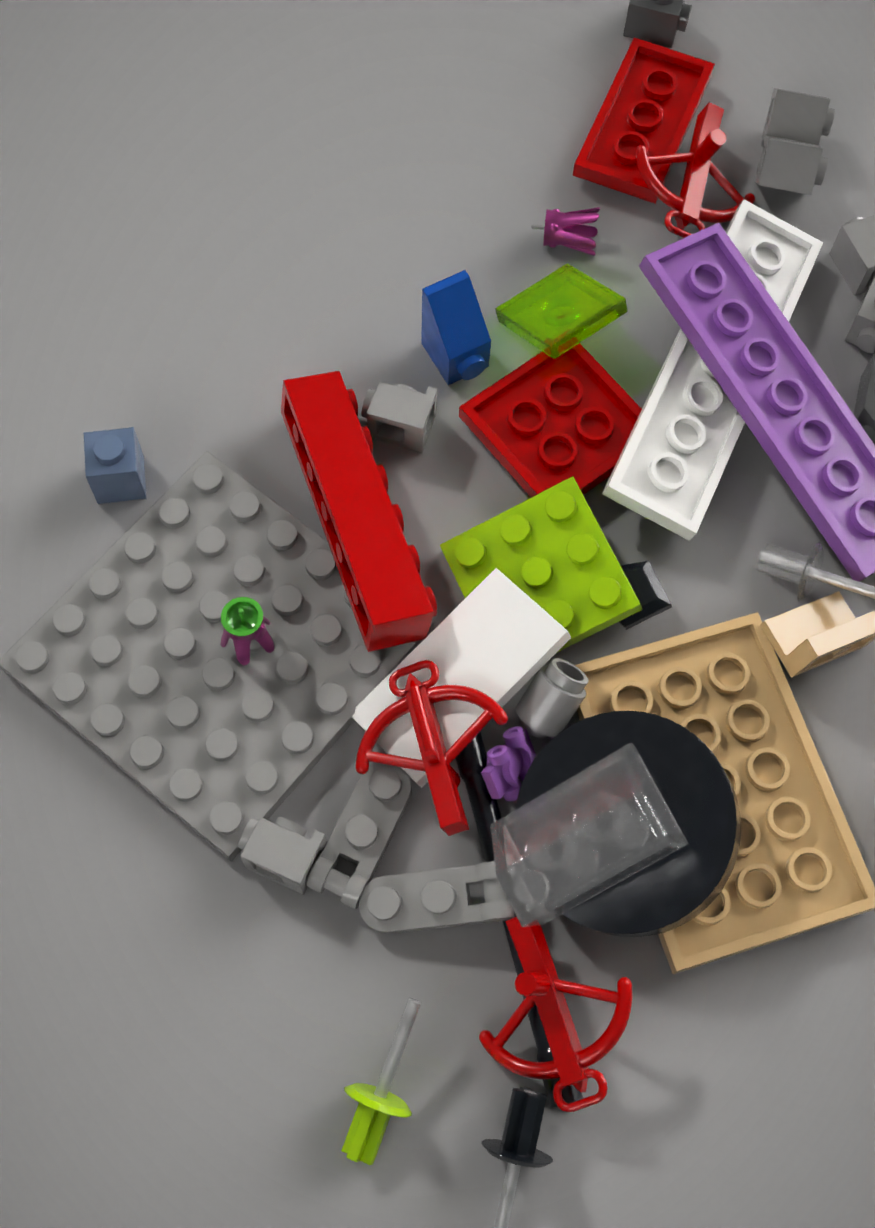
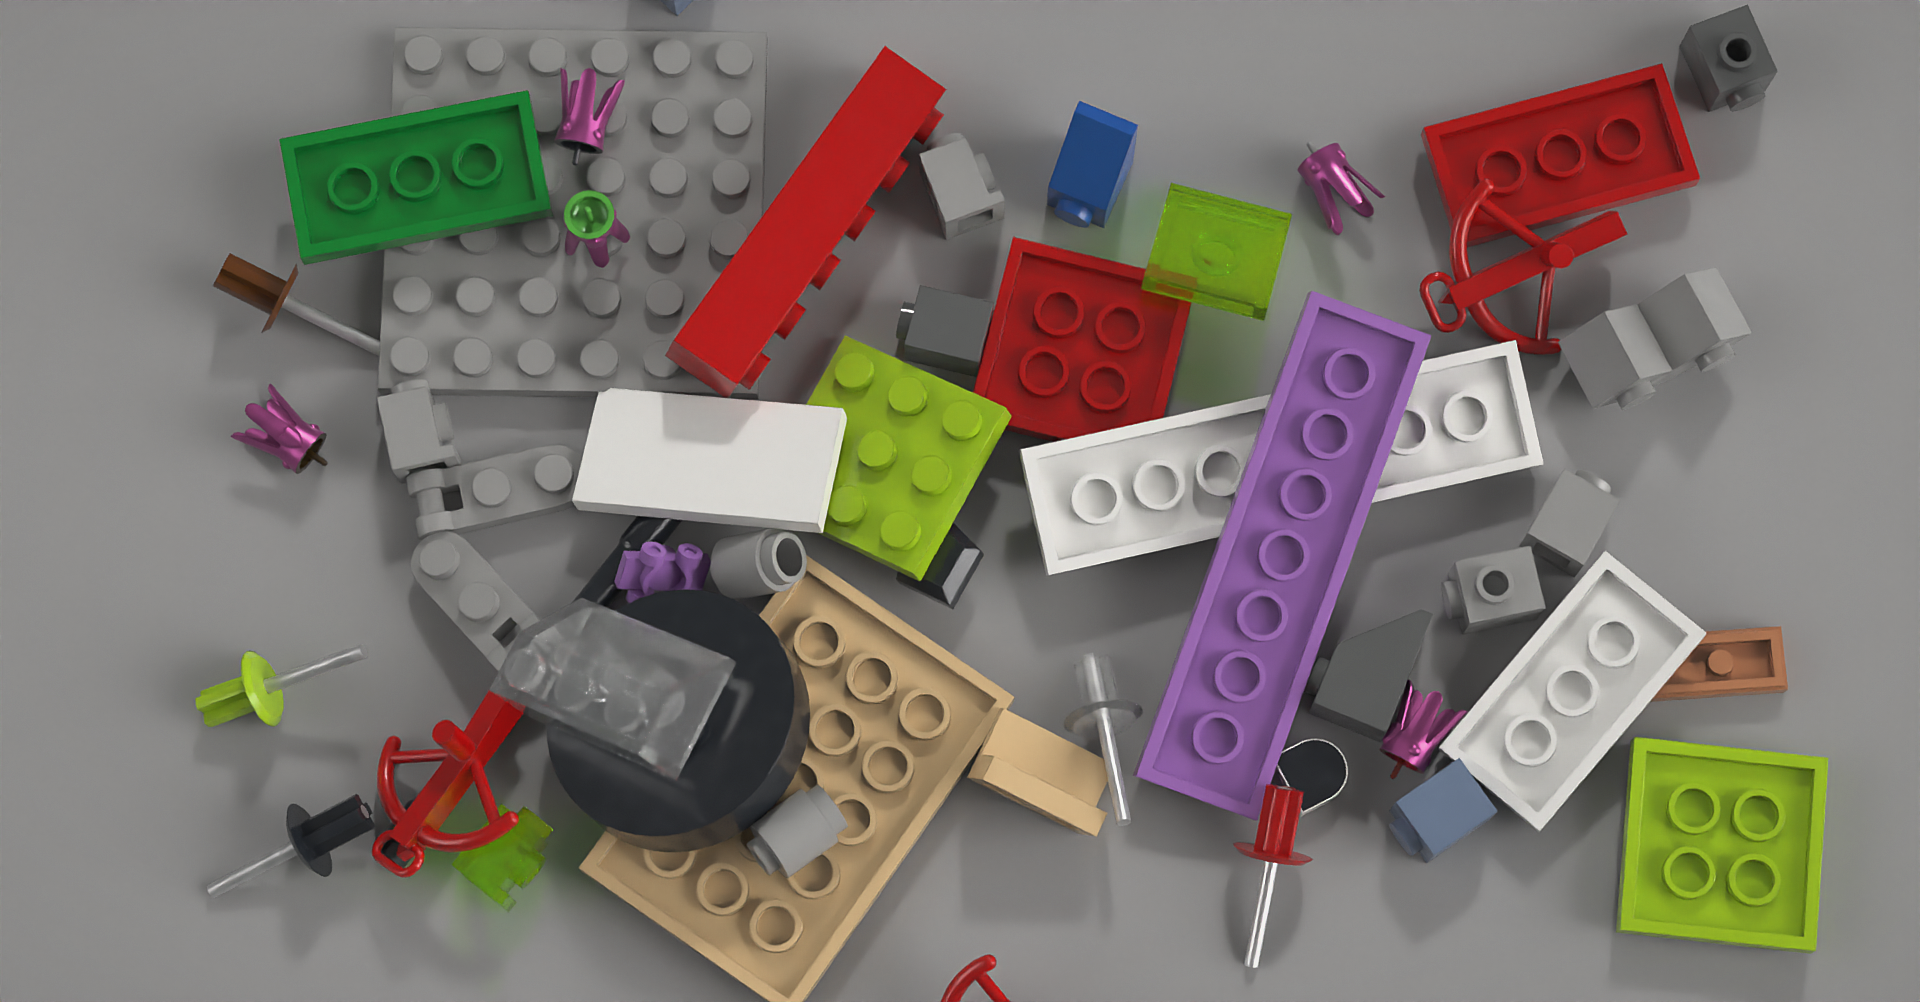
camera: 55 degrees right, 10 degrees up
(107, 874) = (271, 294): none -> reddish brown piece
(110, 718) = (415, 177): none -> green plate
(176, 588) = (578, 127): none -> flat silver piece
(216, 938) = (286, 434): none -> flat silver piece
(435, 759) = (602, 499): red piece -> none
(487, 483) = (945, 330): none -> dark grey brick
(641, 1030) = (508, 860): none -> clear neon green brick
(763, 802) = (796, 831): none -> light grey brick

